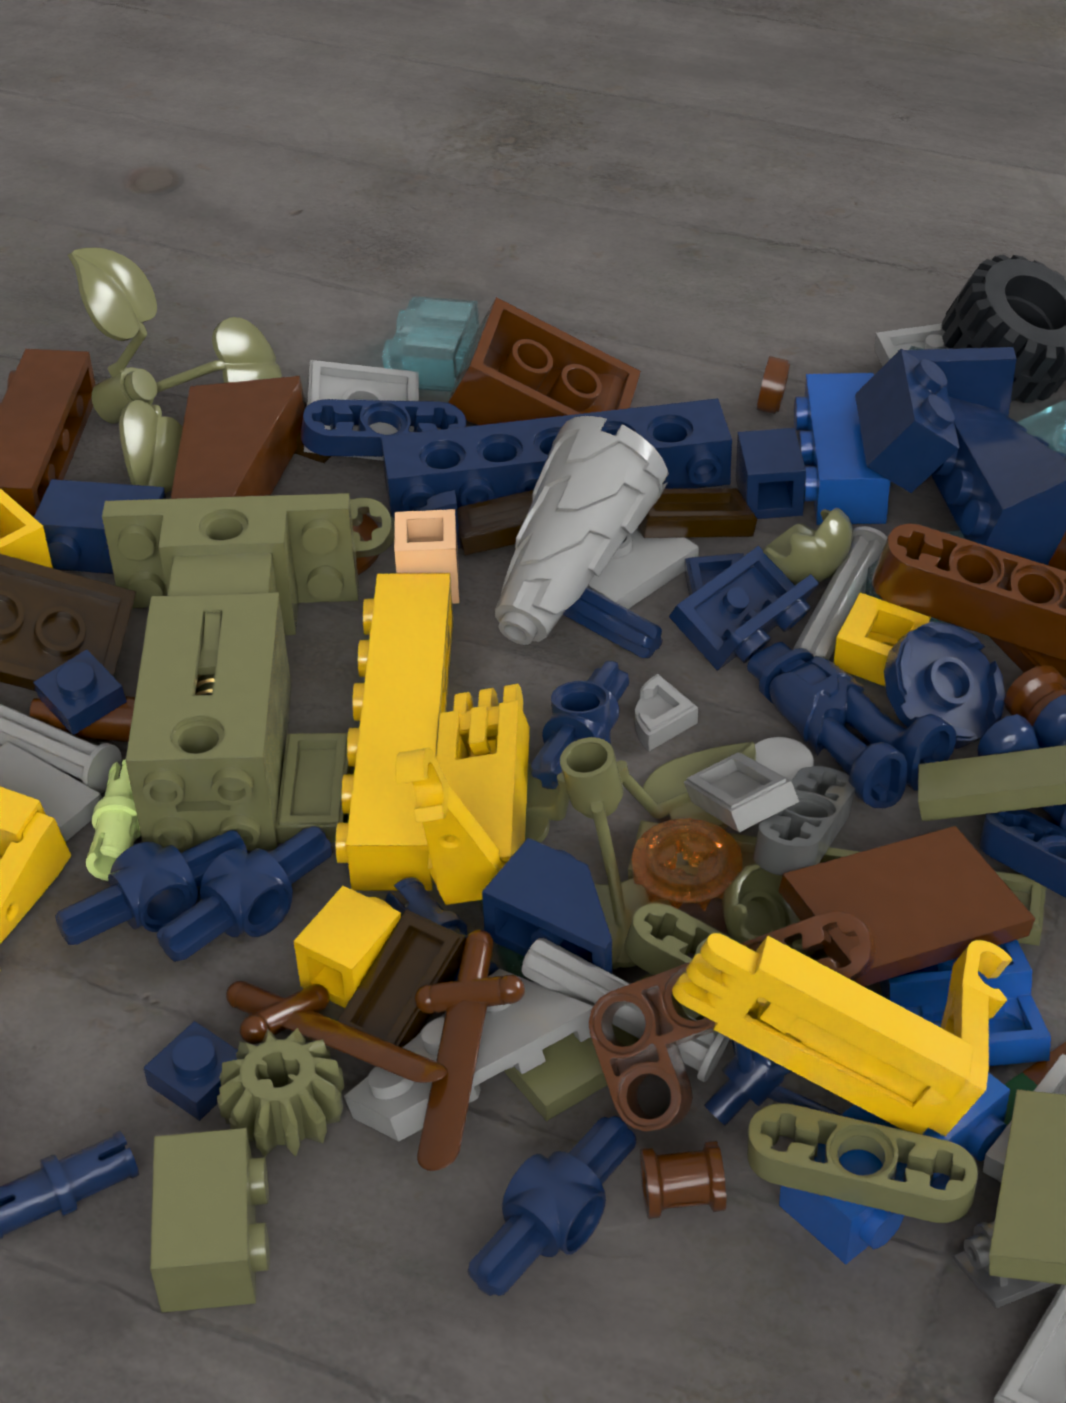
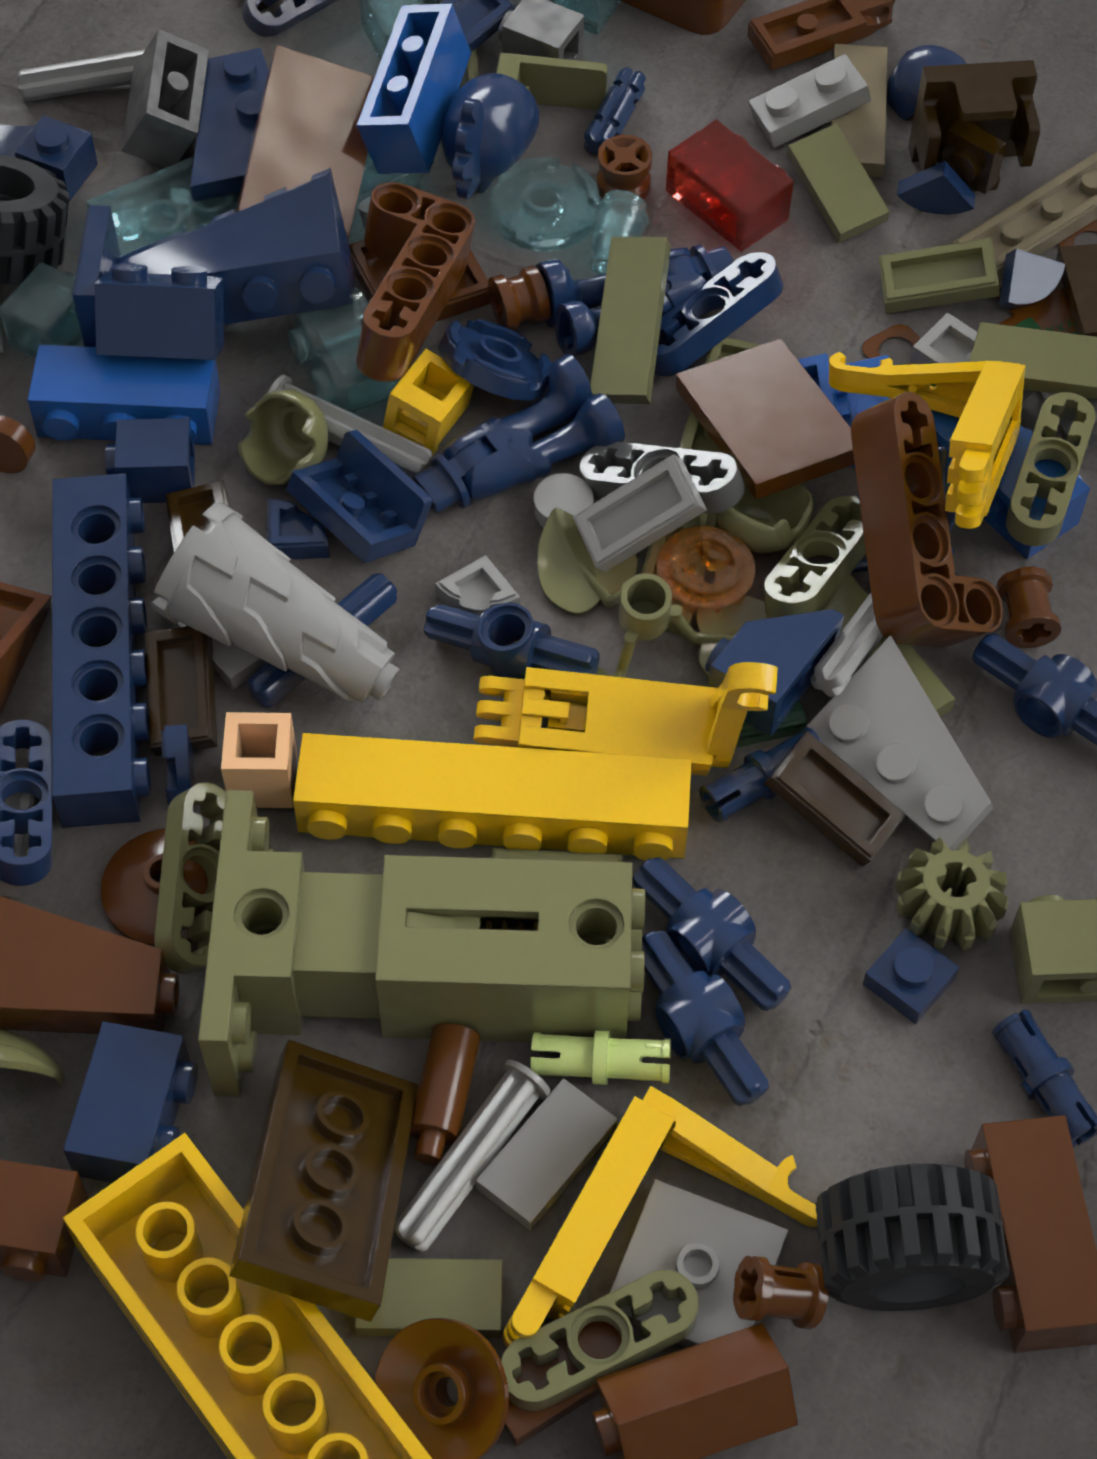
camera: 90 degrees left, 15 degrees up
(80, 692) = (442, 1088): dark blue plate -> none
(302, 1012) = (863, 890): reddish brown sword -> none
(343, 942) = (786, 839): yellow brick -> none
(465, 1010) = (925, 741): reddish brown sword -> none

